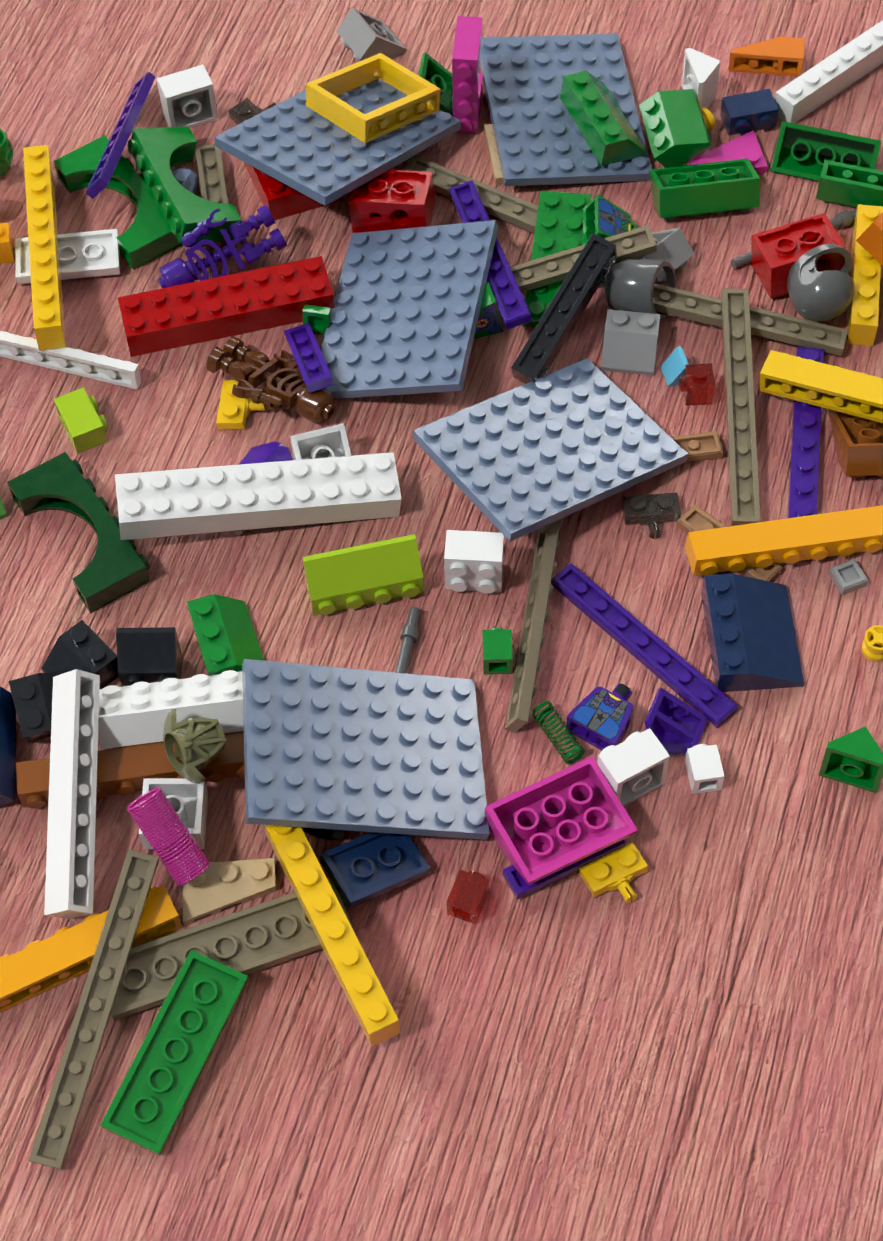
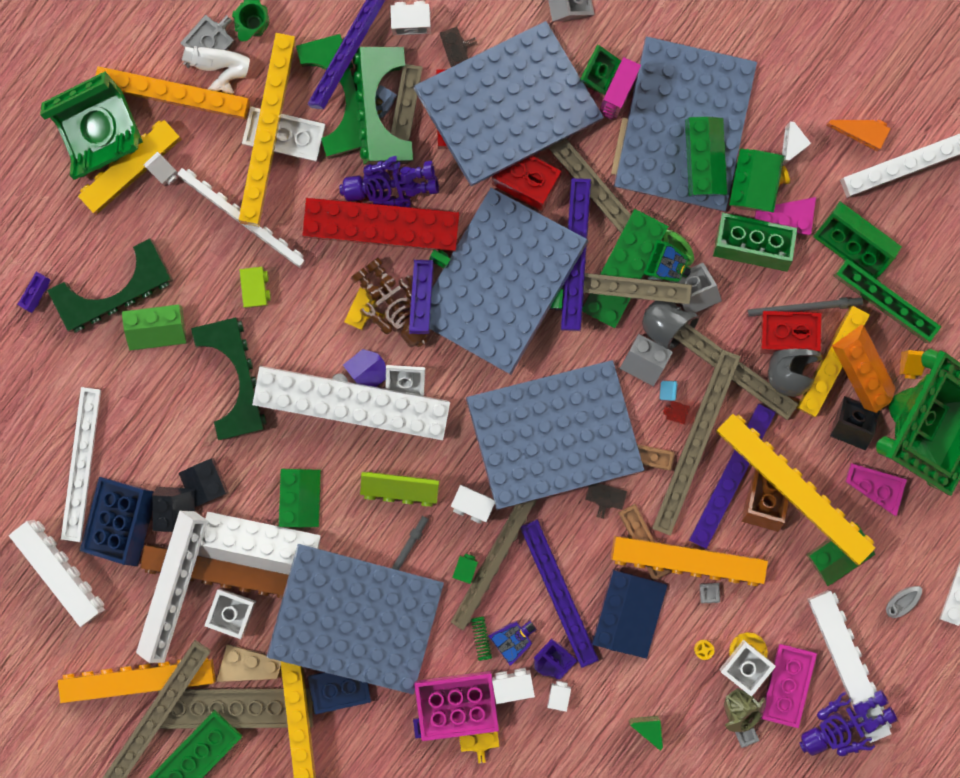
camera: 25 degrees right, 30 degrees up
(148, 654) = (245, 499): black slope -> none
(163, 830) = (220, 640): dark pink piece -> none
(196, 744) = (253, 583): olive piece -> none
(421, 101) = (553, 111): yellow window -> none
(468, 896) = (387, 727): clear red brick -> none
(565, 309) = (606, 331): black piece -> none
(749, 112) = (820, 180): dark blue brick -> none

